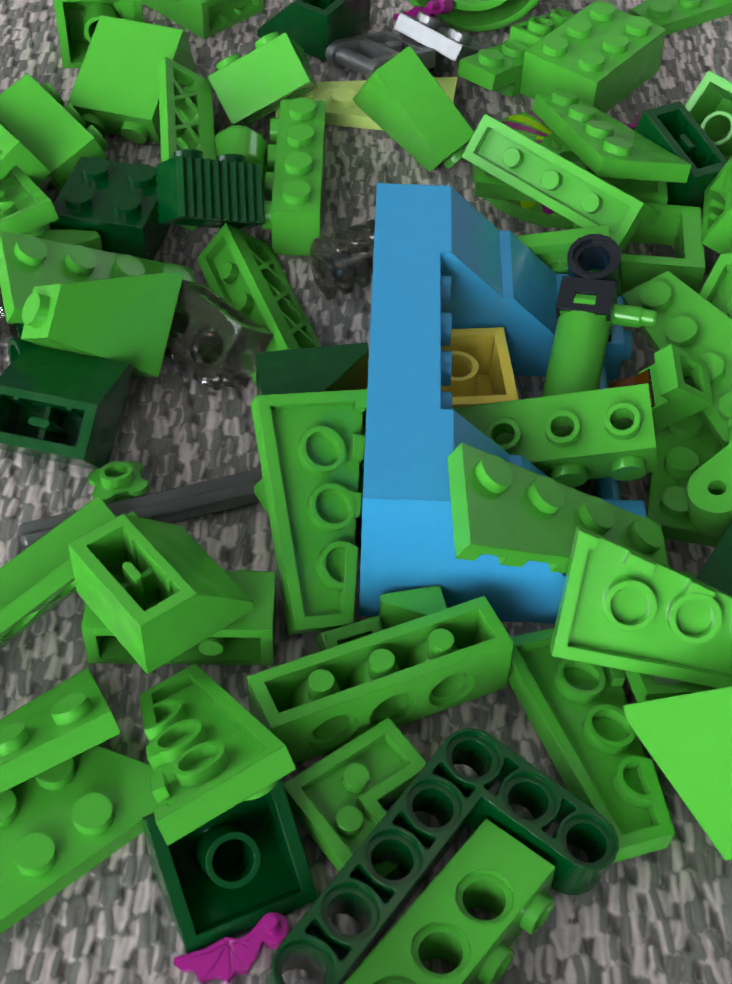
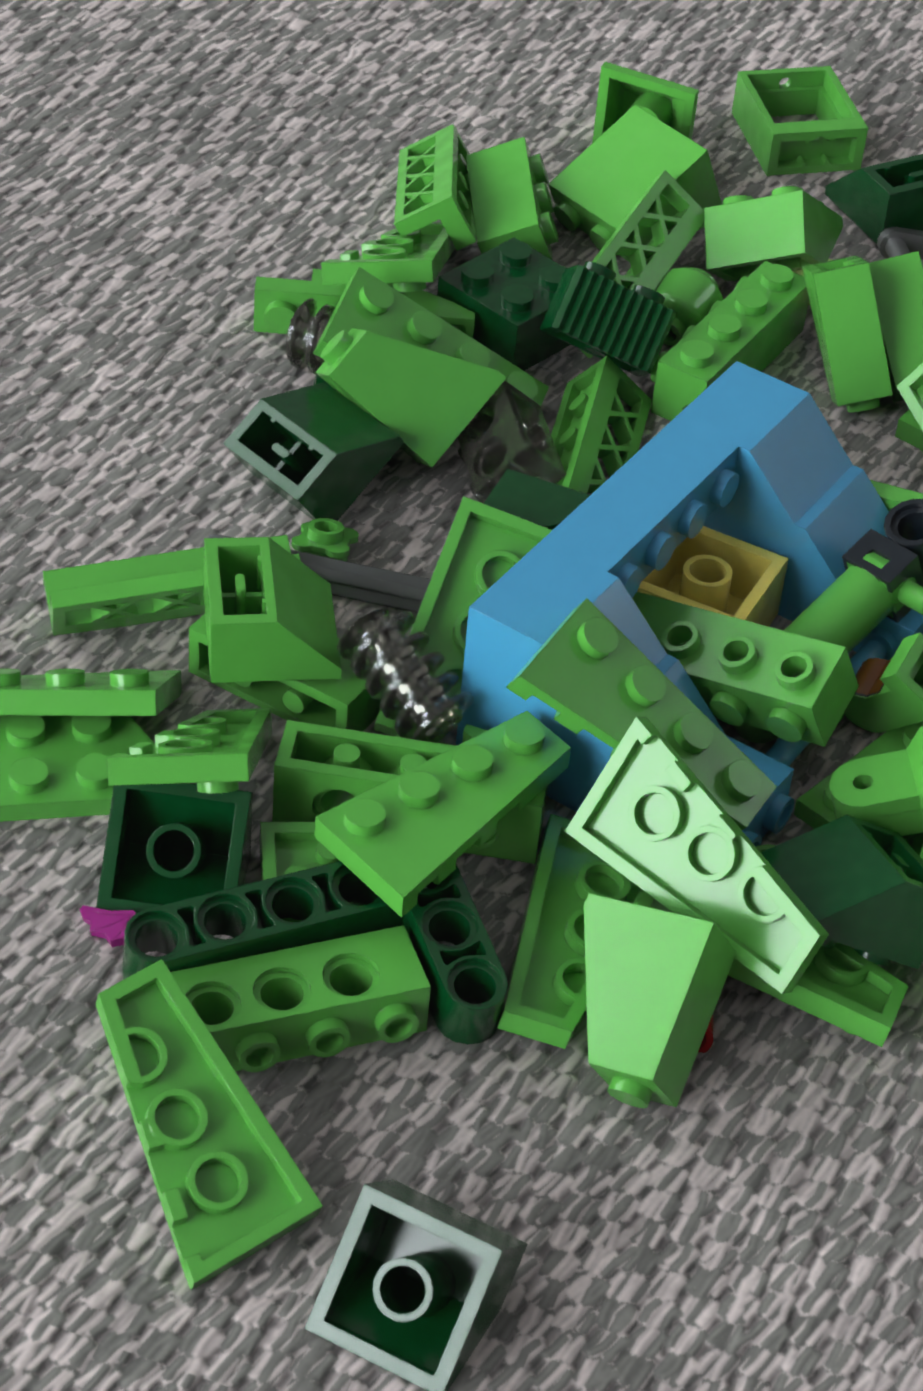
camera: 30 degrees right, 5 degrees down
(315, 580) = (403, 677): none -> clear smoke piece
(382, 124) = (849, 332): none -> bright green slope
(448, 703) = (428, 816): none -> bright green wing

